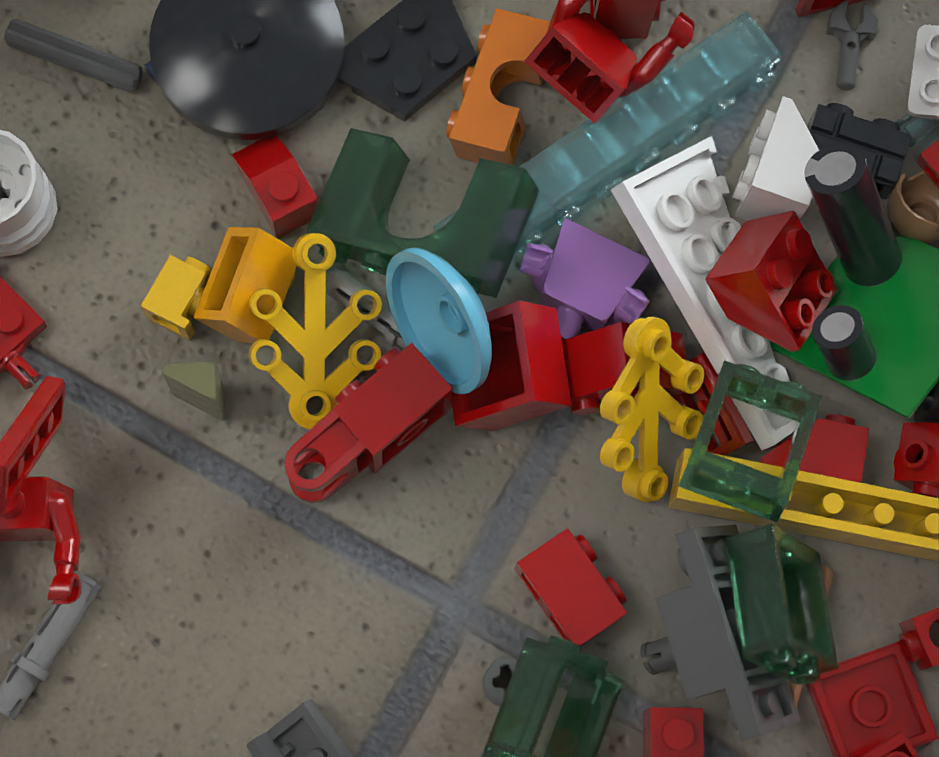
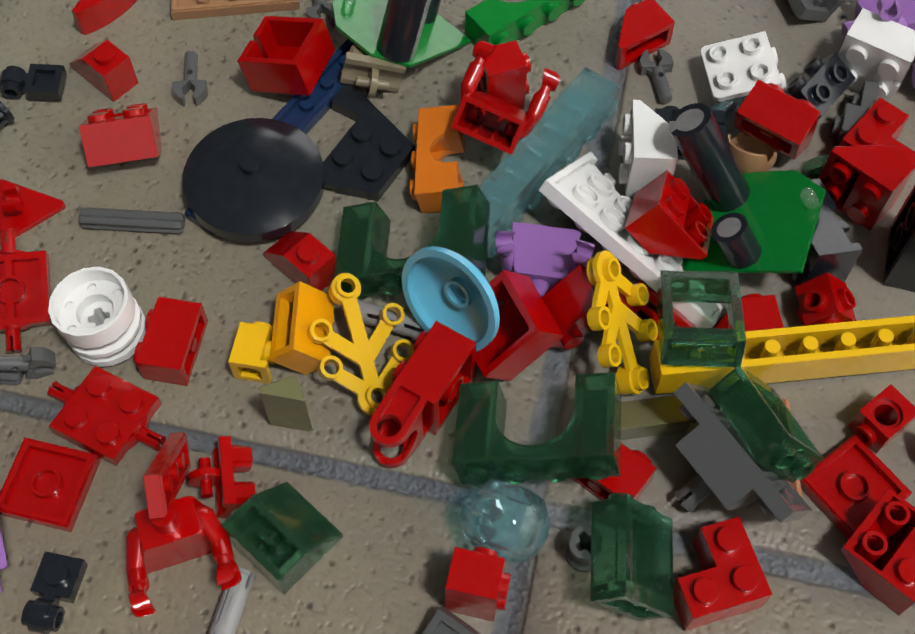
camera: 10 degrees left, 15 degrees down
(79, 248) = (171, 341): none -> red brick
(97, 476) = (226, 461): none -> red hips
(146, 549) = (281, 534): none -> clear green slope
(357, 688) = (477, 583): none -> red brick
(417, 622) = (506, 520): none -> clear light blue piece
(544, 567) = (583, 450): none -> clear green arch
(639, 532) = (652, 417): none -> olive slope

